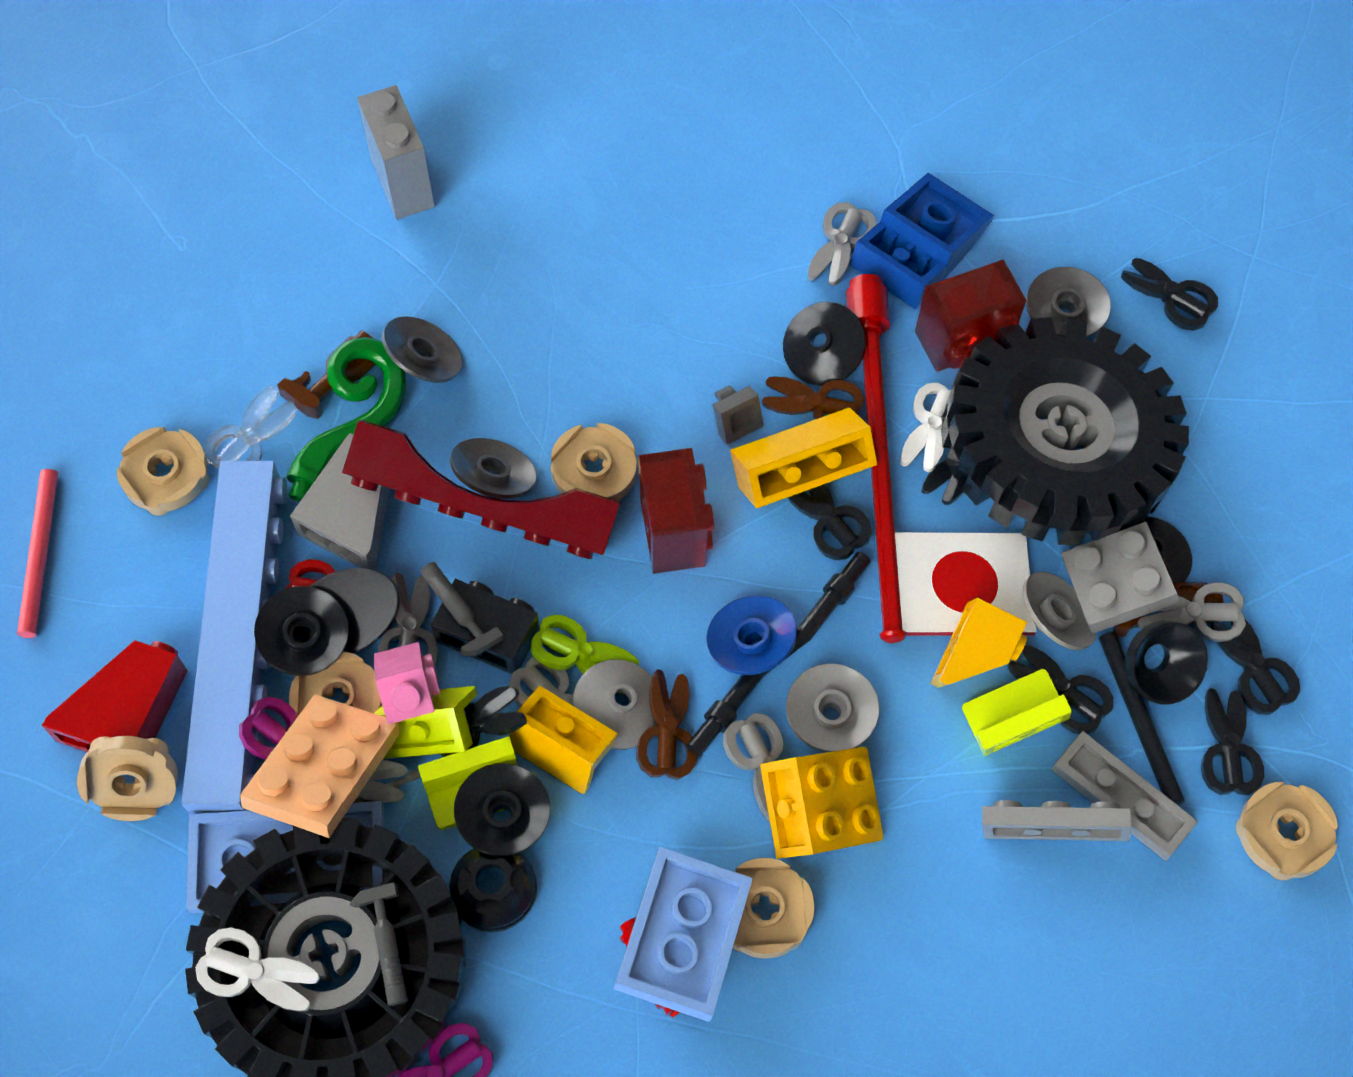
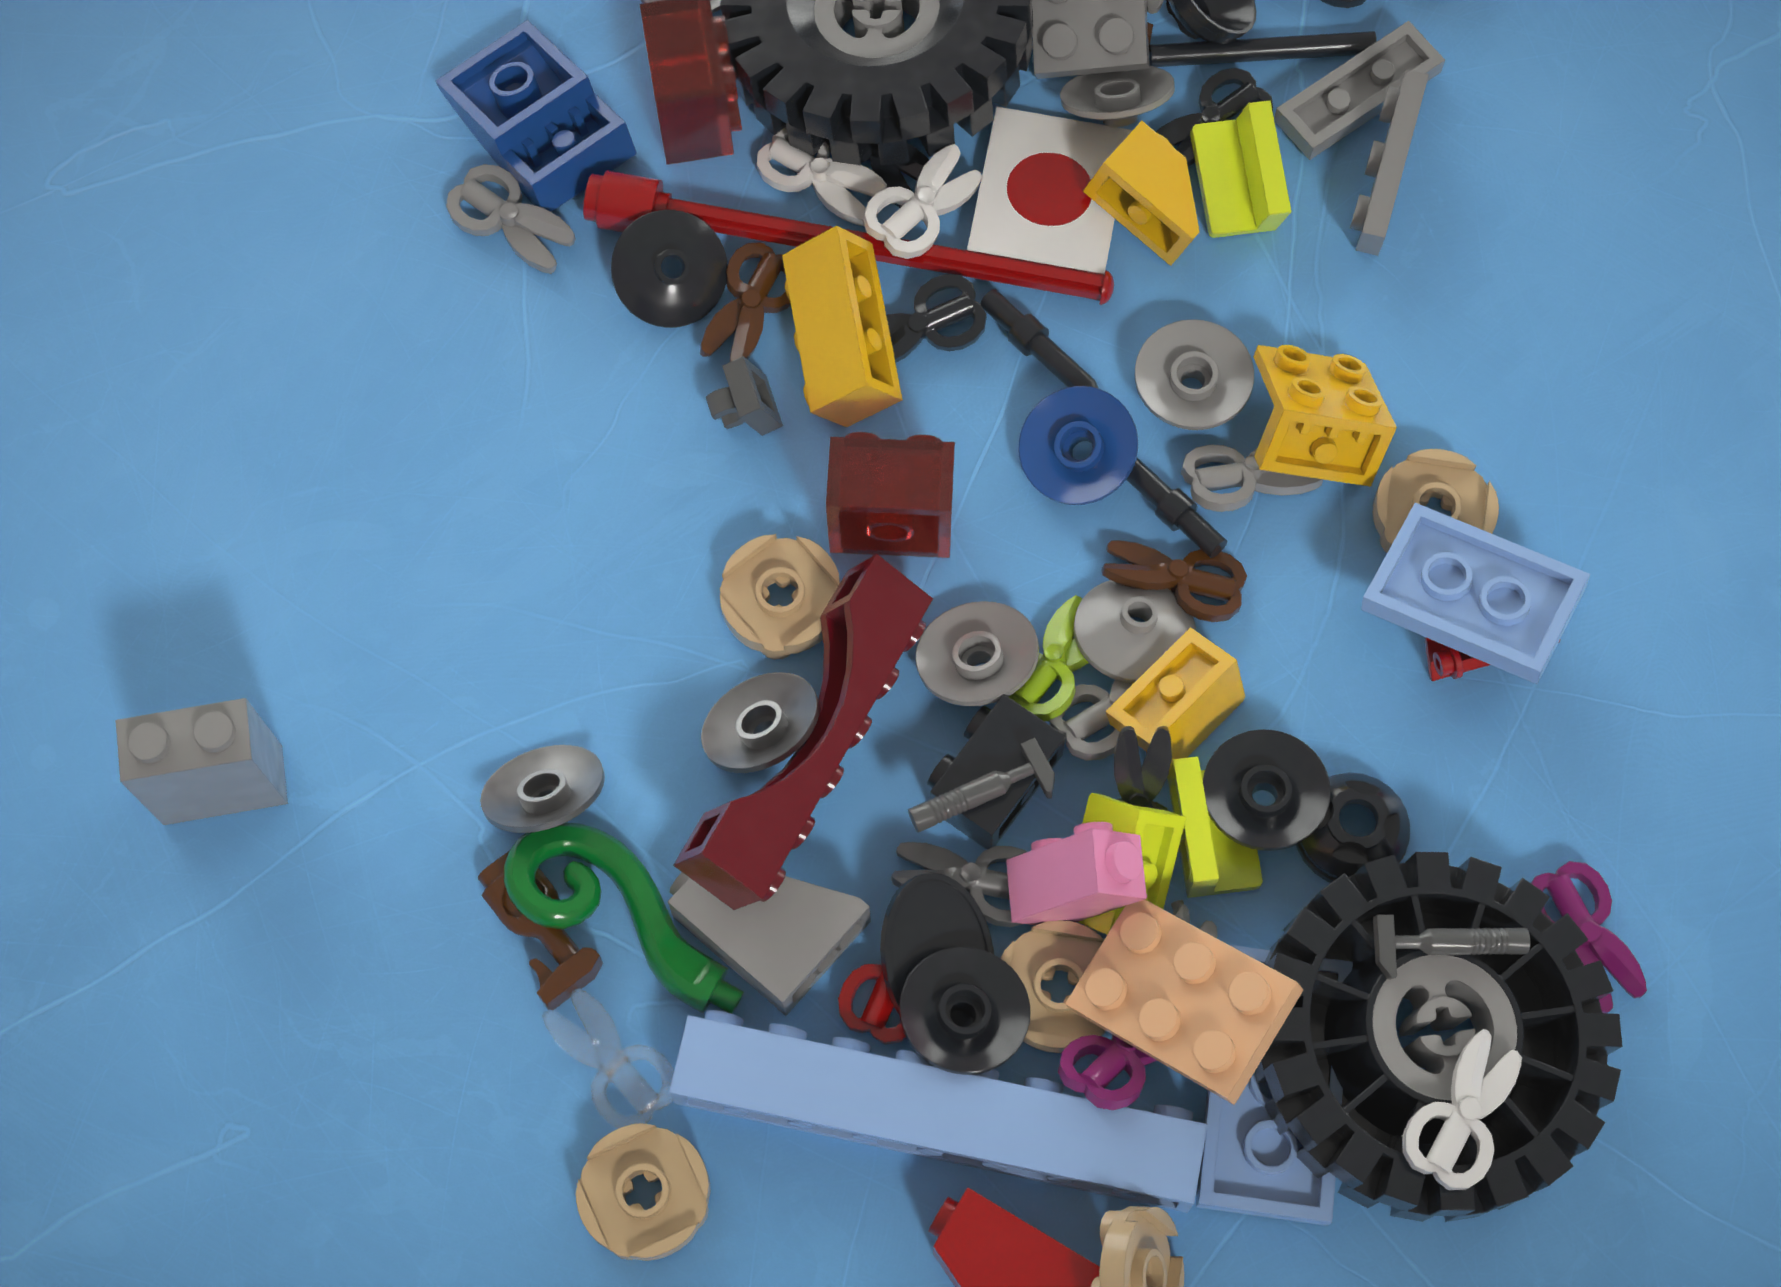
camera: 75 degrees left, 5 degrees up
(574, 583) = (971, 636): none -> light grey dish
(927, 496) = (926, 203): none -> white piece

